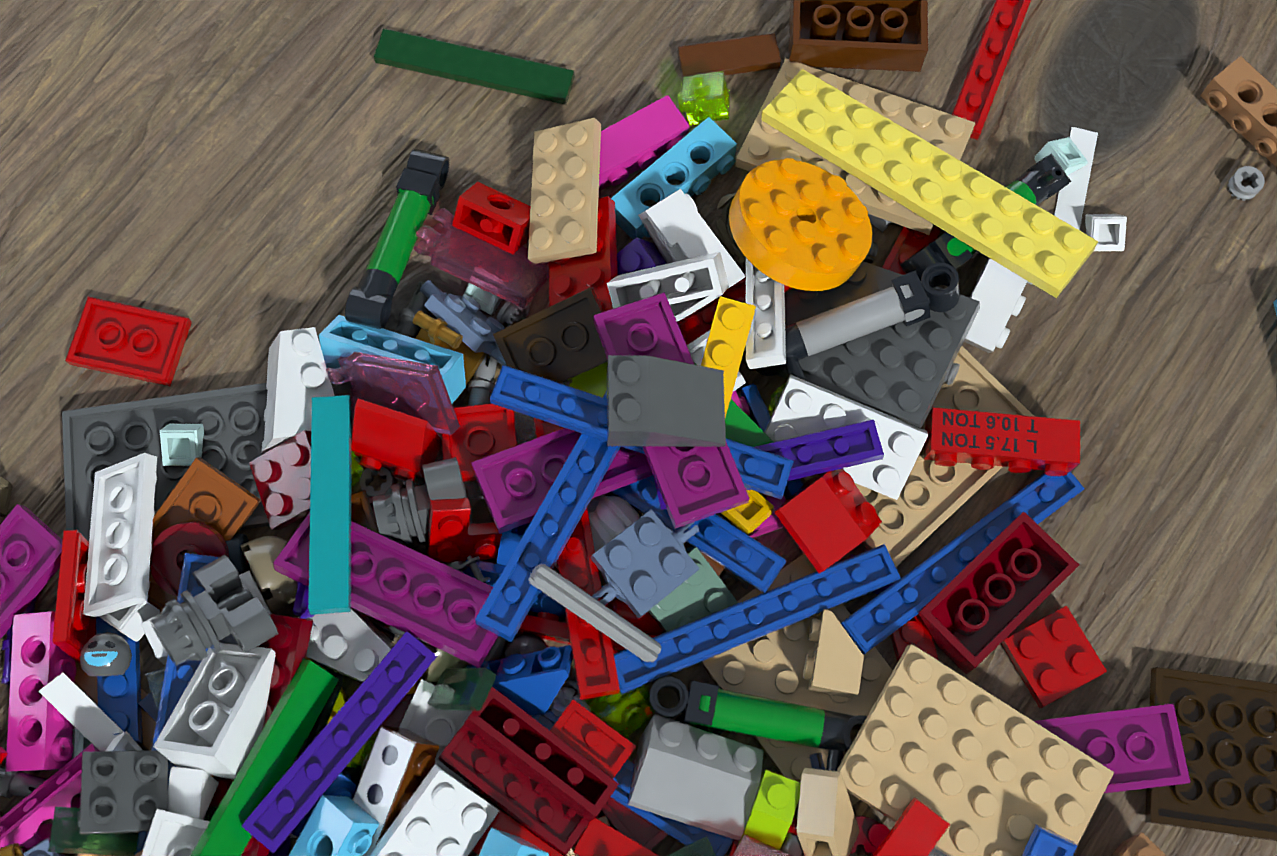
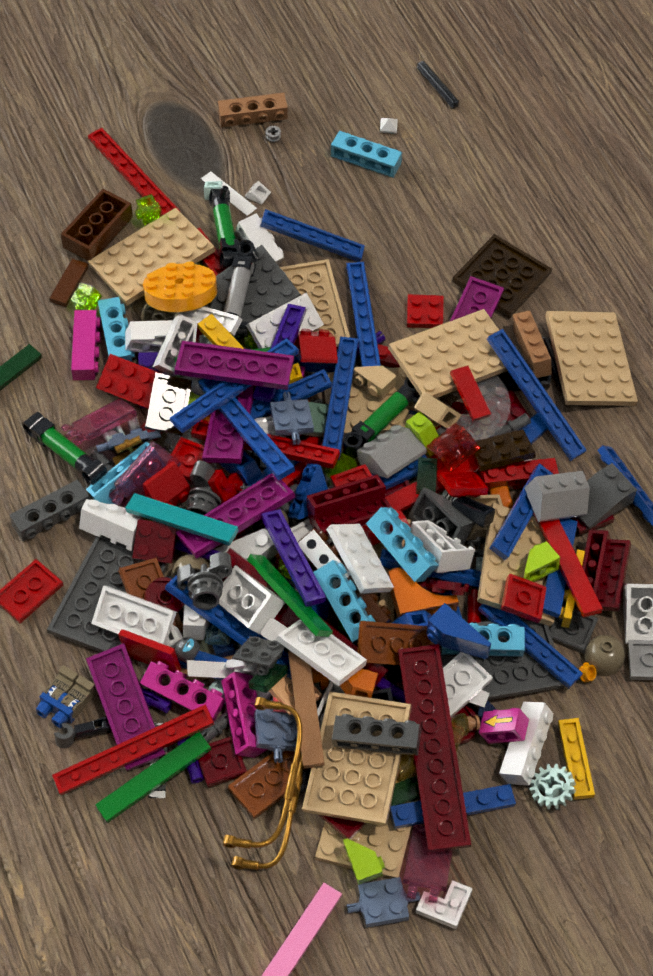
camera: 60 degrees left, 15 degrees down
(181, 443) = (101, 579): light aqua slope -> none
(240, 256) = (54, 502): none -> dark grey brick
(462, 689) = (299, 509): clear green tile -> none
(493, 217) = (82, 407): red brick -> none
(565, 191) = (94, 369): tan plate -> none
(594, 613) = (302, 438): light grey axle -> none
(664, 403) = (232, 362): dark grey slope -> none
(930, 182) = (191, 235): light yellow plate -> none
(941, 83) = (147, 209): none -> clear neon green brick
(996, 592) = (386, 309): dark red slope -> none
(1002, 441) = (326, 272): red brick -> none
(1072, 379) = (312, 235): none -> blue tile

